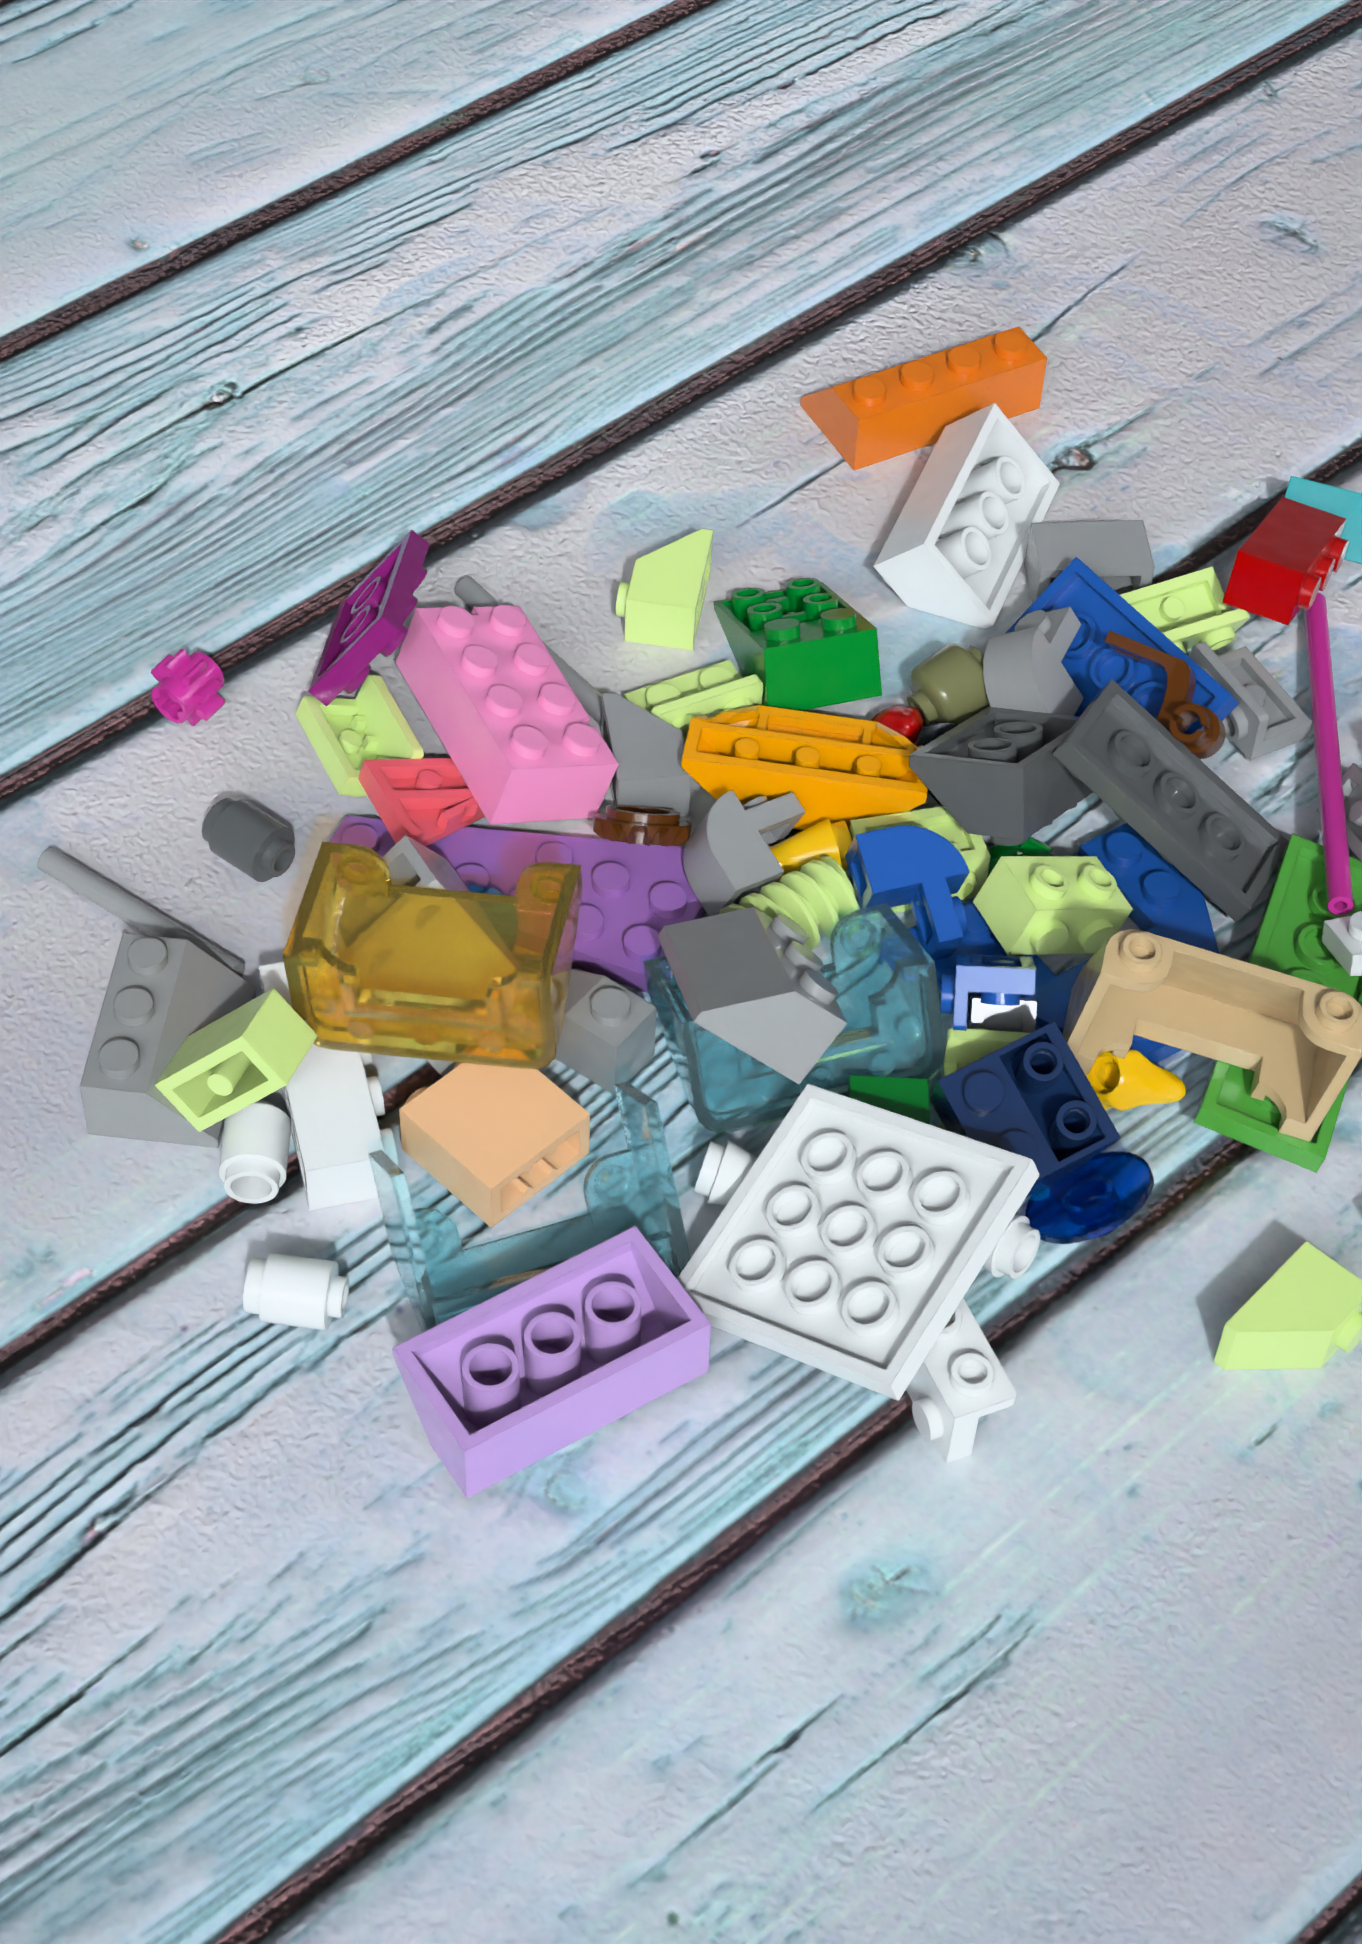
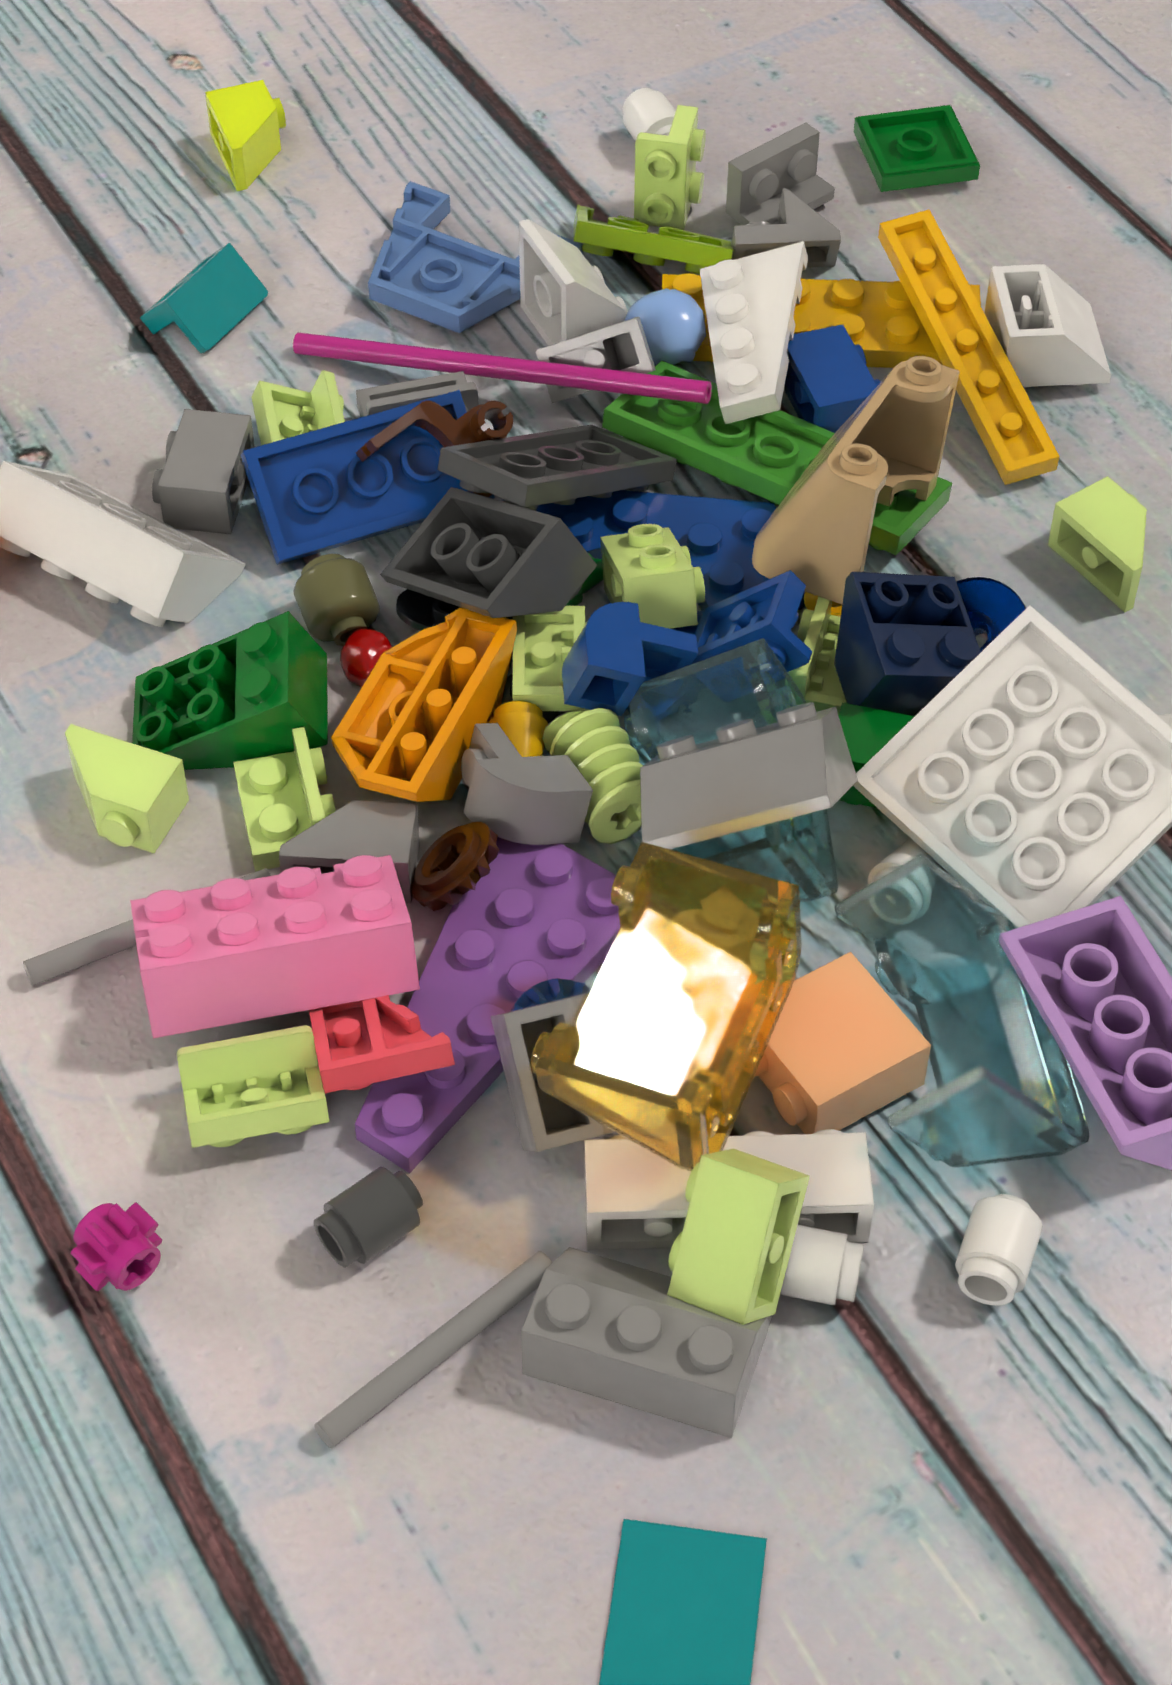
camera: 75 degrees left, 0 degrees up
(371, 620) = (107, 1033): magenta plate -> none
(1026, 668) = (349, 521): light grey brick -> none
(1286, 561) = (274, 330): red brick -> none

